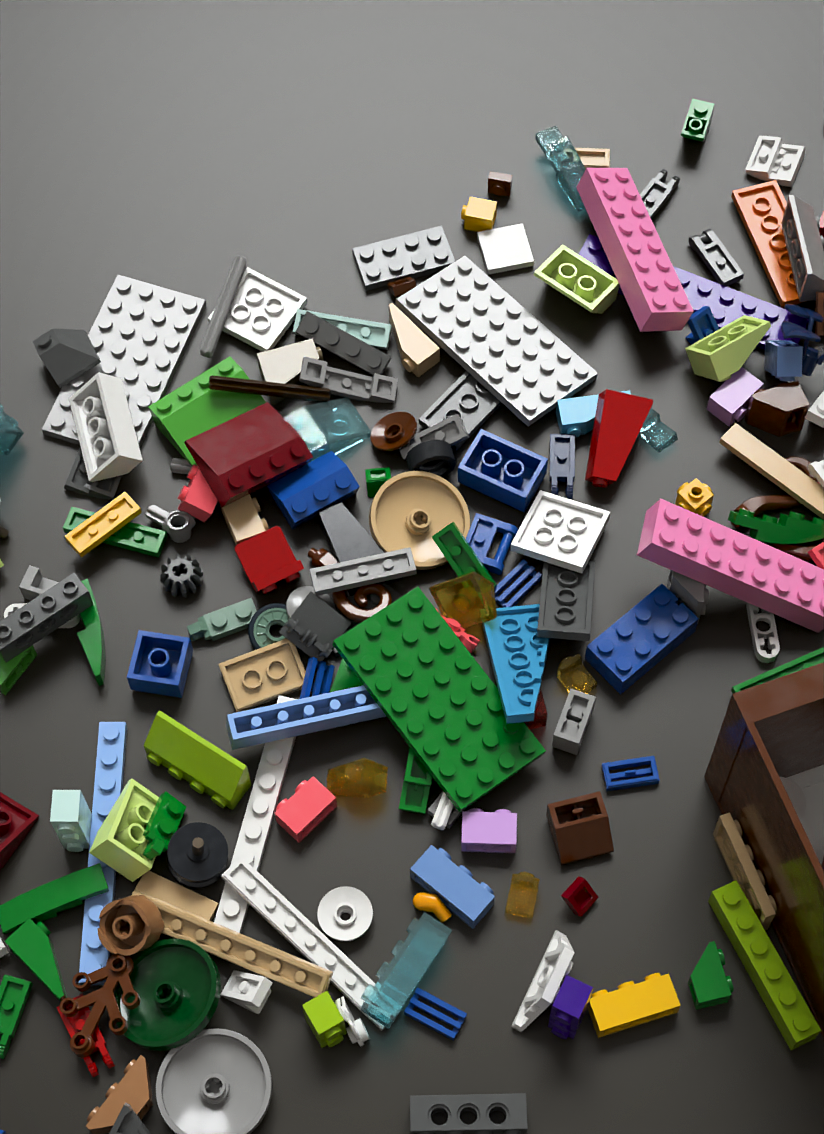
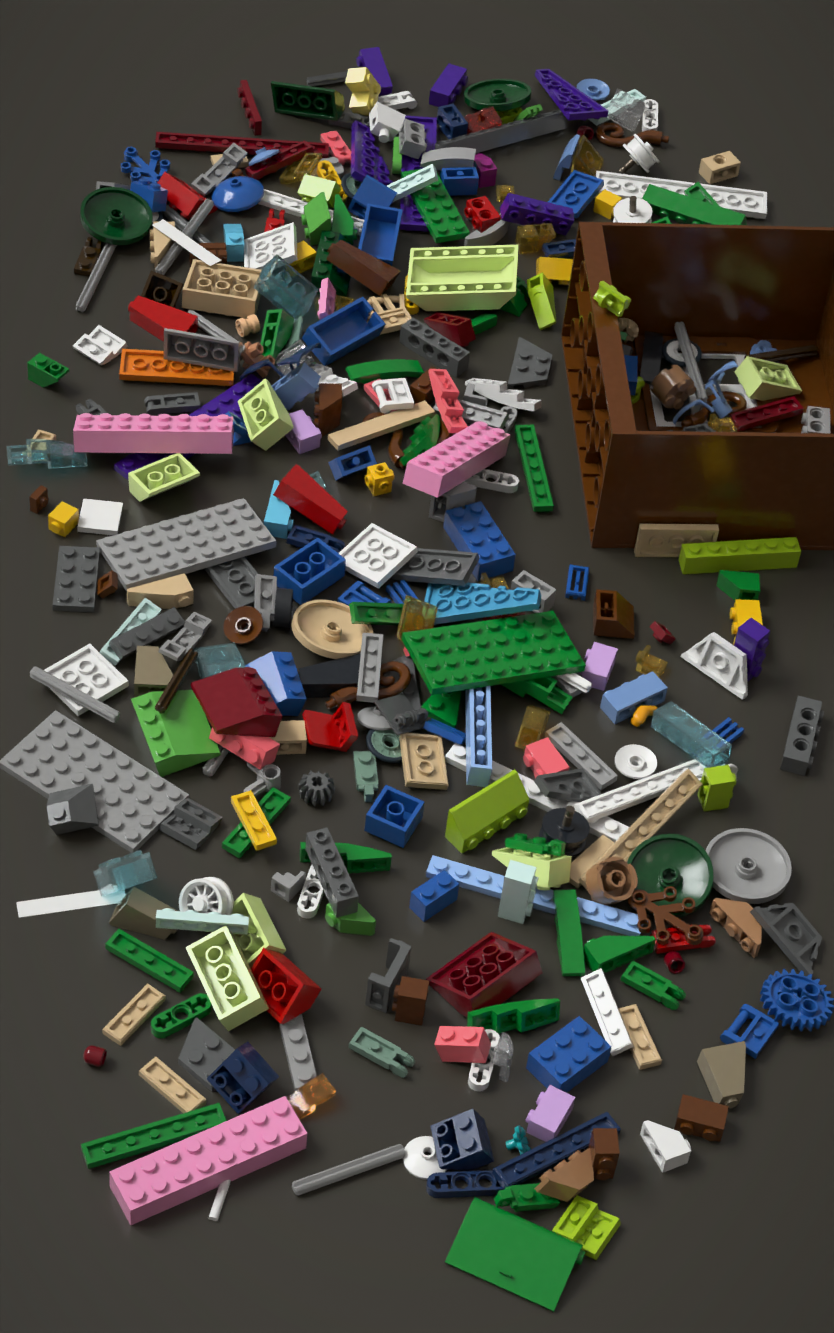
camera: 80 degrees left, 15 degrees down
(51, 1033) = (671, 957): none -> dark red piece
(62, 738) = (434, 895): none -> blue brick
(105, 428) = (162, 797): white slope -> none
(247, 990) = (681, 823): white slope -> none
(271, 843) = (567, 785): none -> dark grey wing
(333, 847) = (581, 755): none -> light grey plate
(375, 479) = (281, 645): green slope -> none
(702, 463) = (352, 462): none -> blue brick

